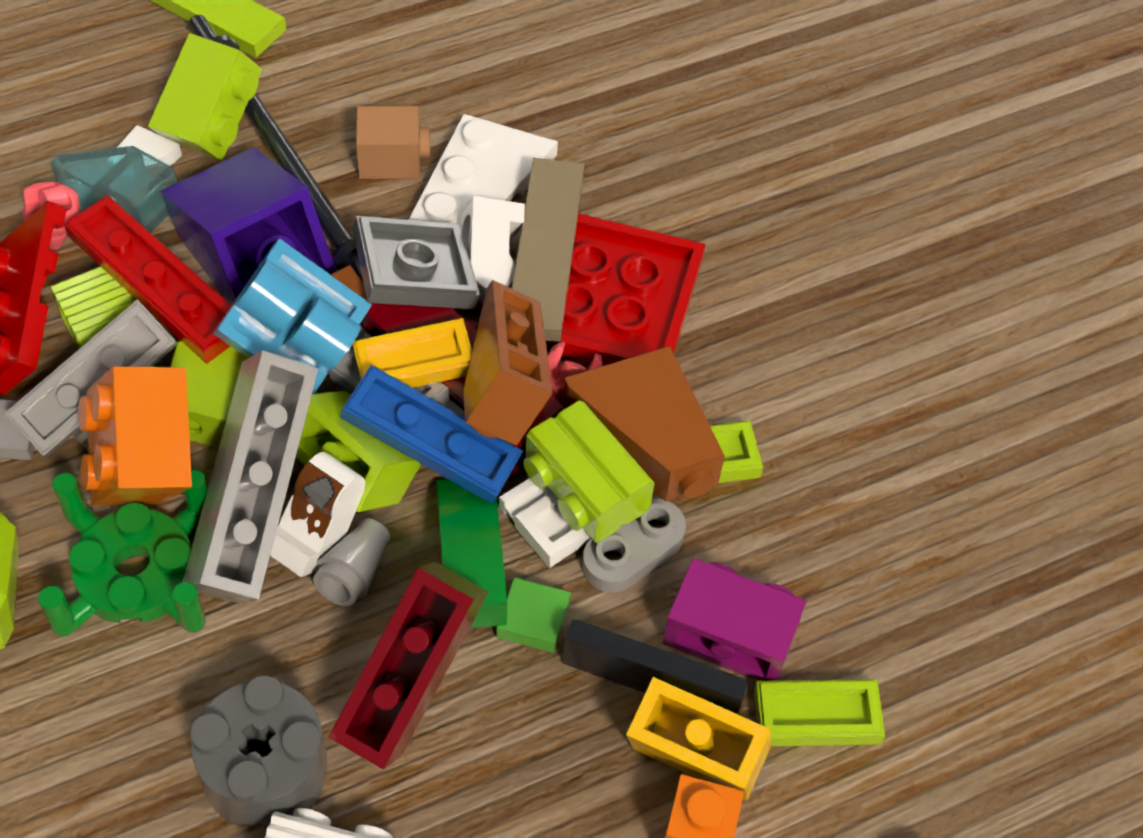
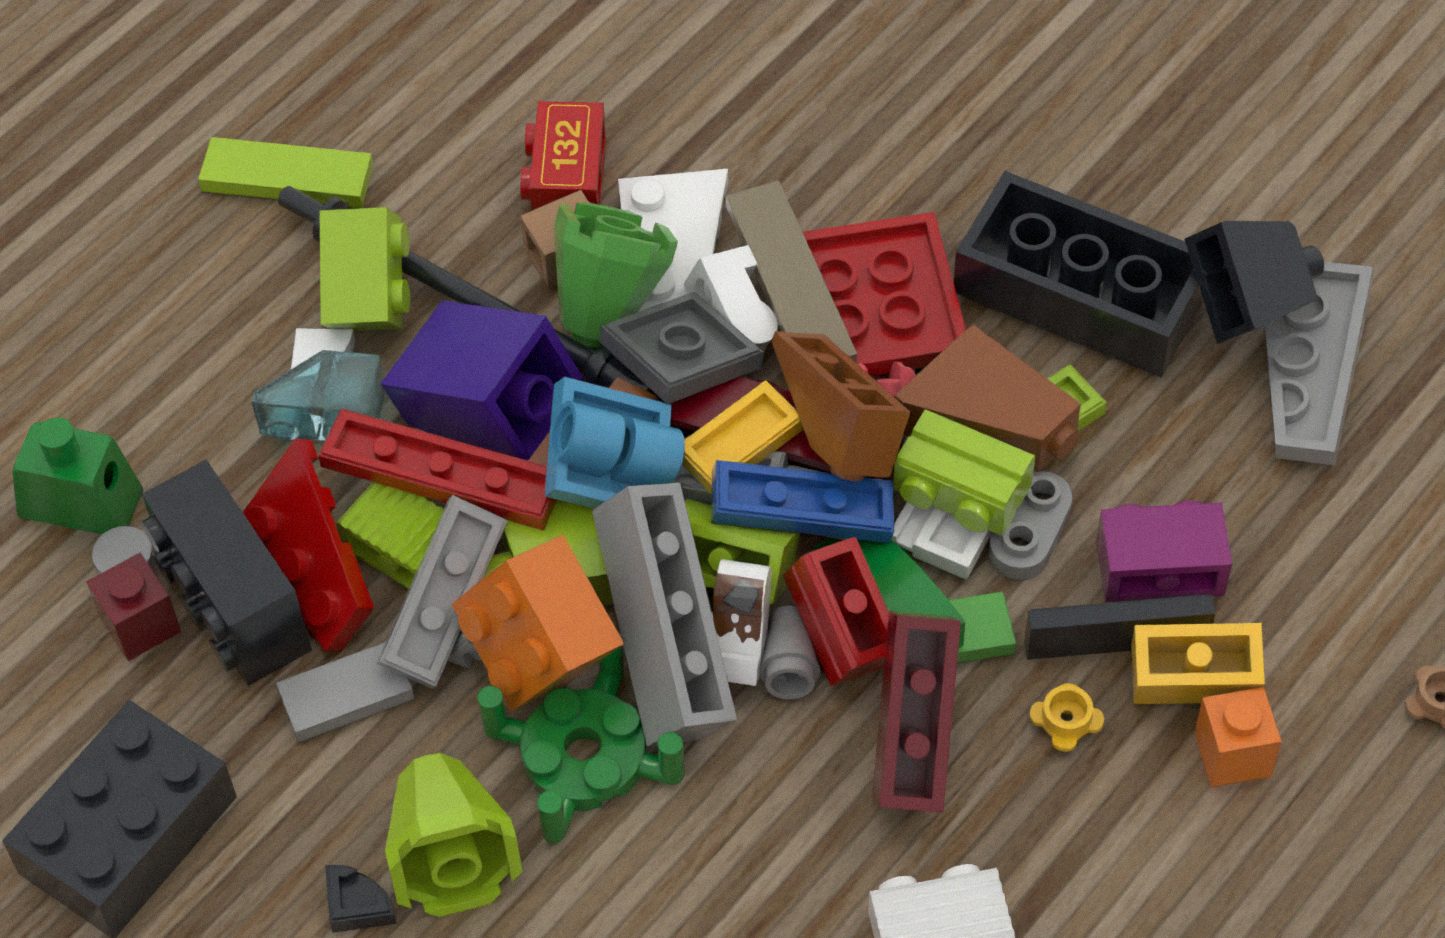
camera: 20 degrees left, 0 degrees up
(57, 193) = (268, 442): coral arm -> none
(251, 721) = (828, 821): dark grey brick -> none
(395, 167) = (605, 266): none -> bright green cone
(407, 535) = (840, 609): none -> red brick
(436, 75) = (565, 152): none -> red brick
(567, 715) = (1066, 700): none -> yellow plate
(802, 347) = (1079, 273): none -> black brick
(820, 712) = (1281, 595): lime tile -> none
(947, 407) = (1252, 274): none -> black torso
(975, 502) = (1314, 364): none -> light grey wing

